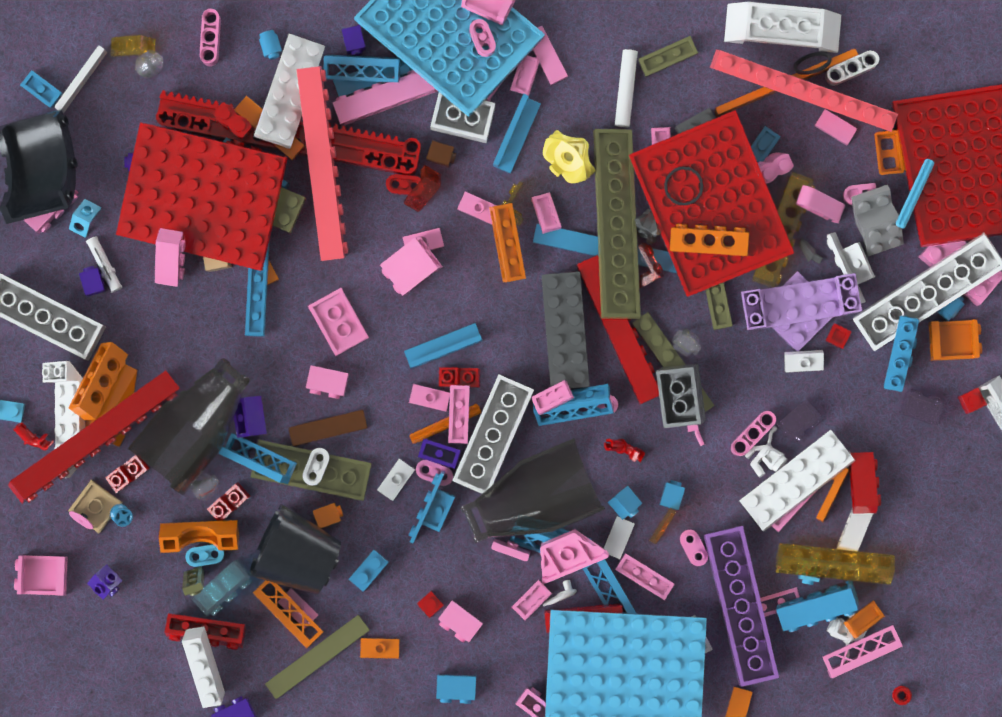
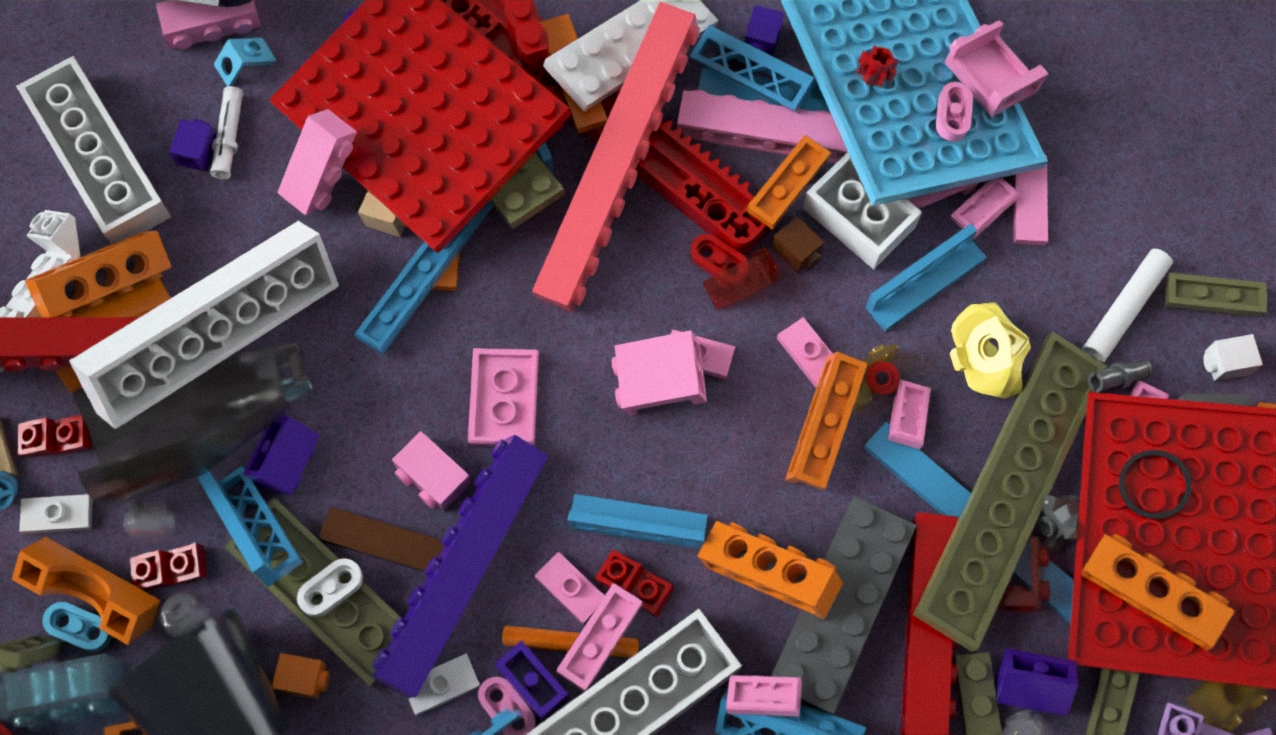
camera: 30 degrees right, 15 degrees down
(155, 509) = (56, 514): none -> white plate
(174, 375) = (204, 324): none -> white brick
(261, 522) = (184, 615): none -> clear head
(371, 418) = (459, 567): none -> dark purple brick
(417, 125) = (788, 181): none -> orange piece
(428, 41) = (877, 66): none -> red gear
(493, 338) = (811, 595): none -> orange brick
(526, 196) = (891, 385): none -> red plate
(640, 131) = (1119, 375): none -> dark grey pin
(676, 314) = (1036, 682): none -> dark purple brick
(692, 88) = (1232, 357): none -> white brick

